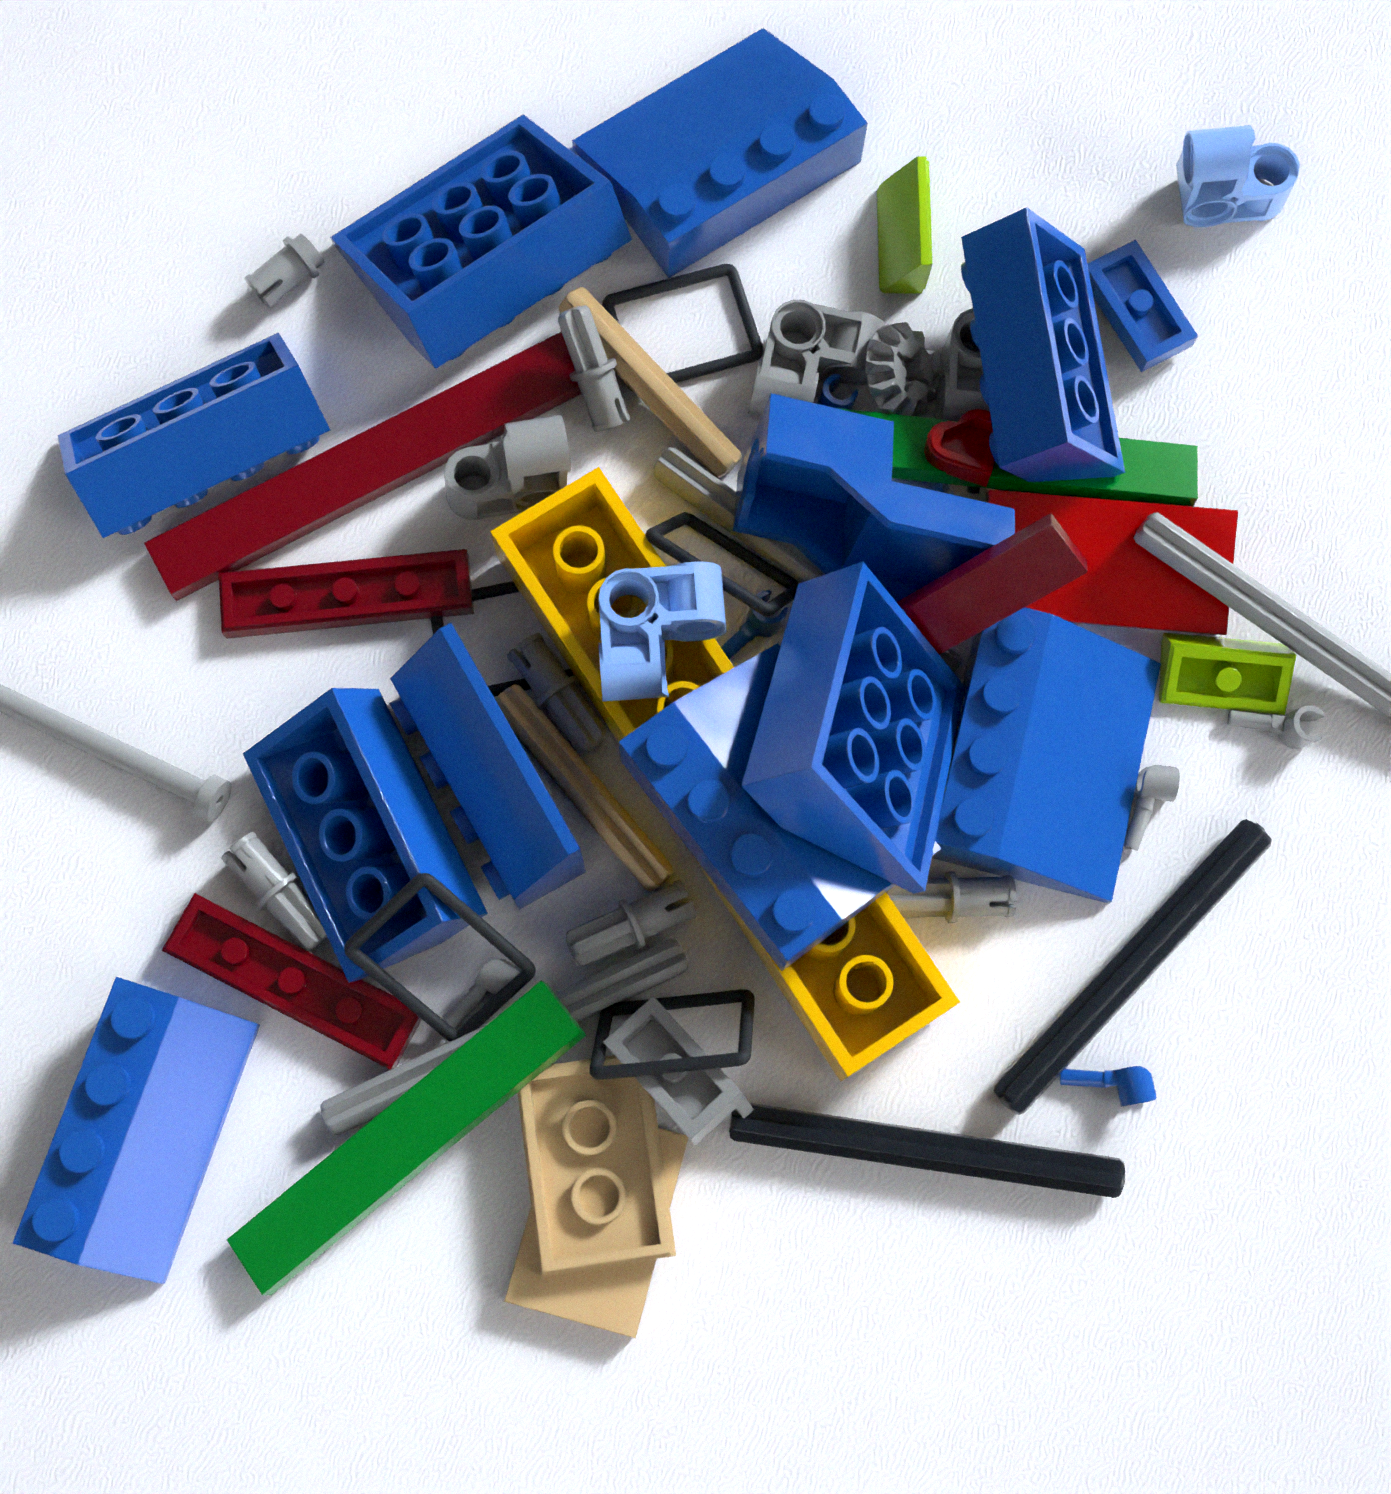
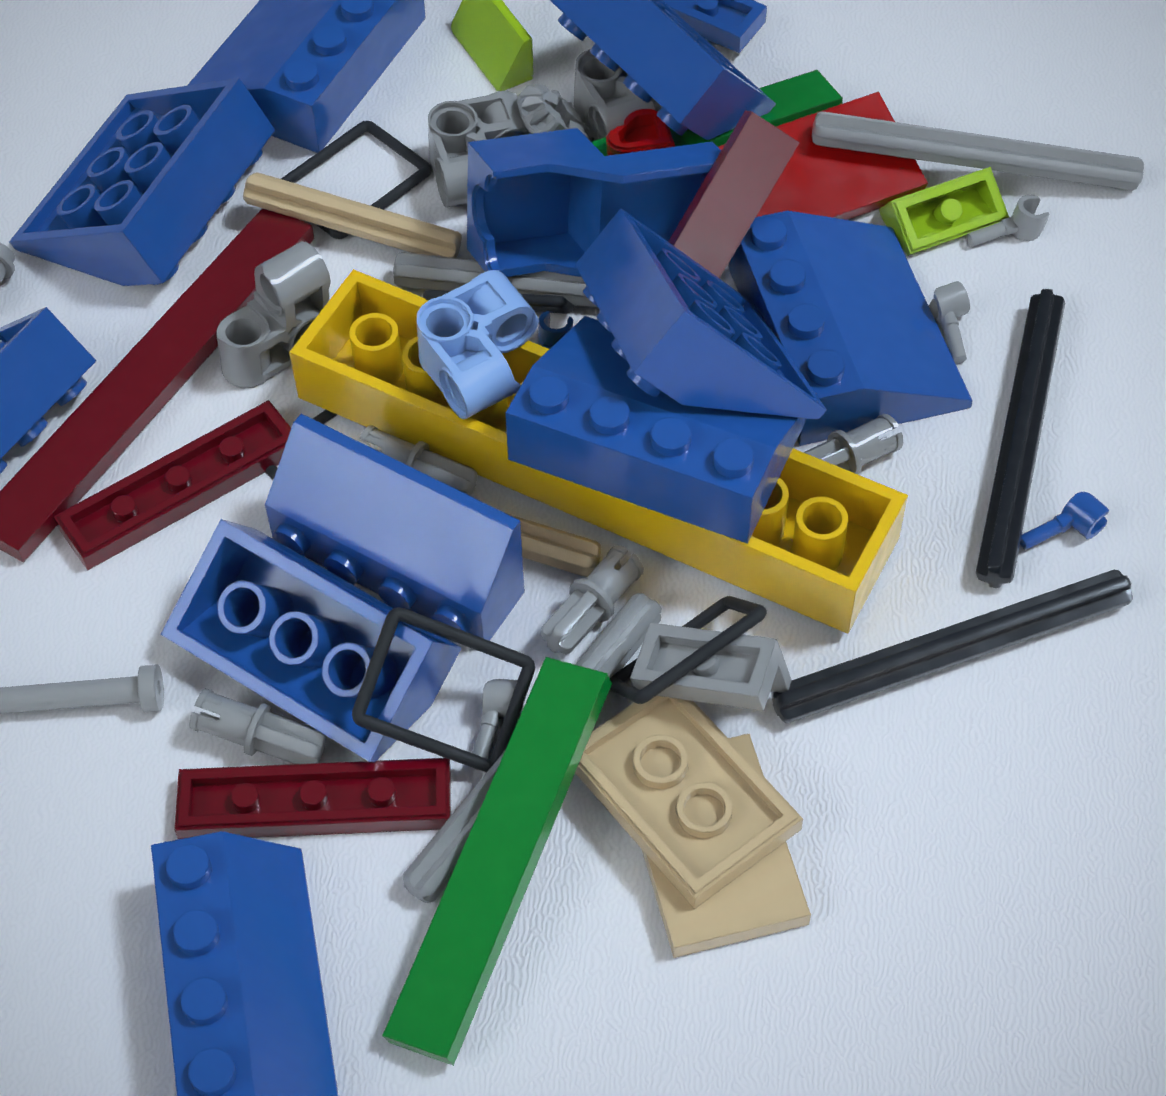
camera: 25 degrees left, 20 degrees down
(593, 369) = (298, 218): light grey axle -> none

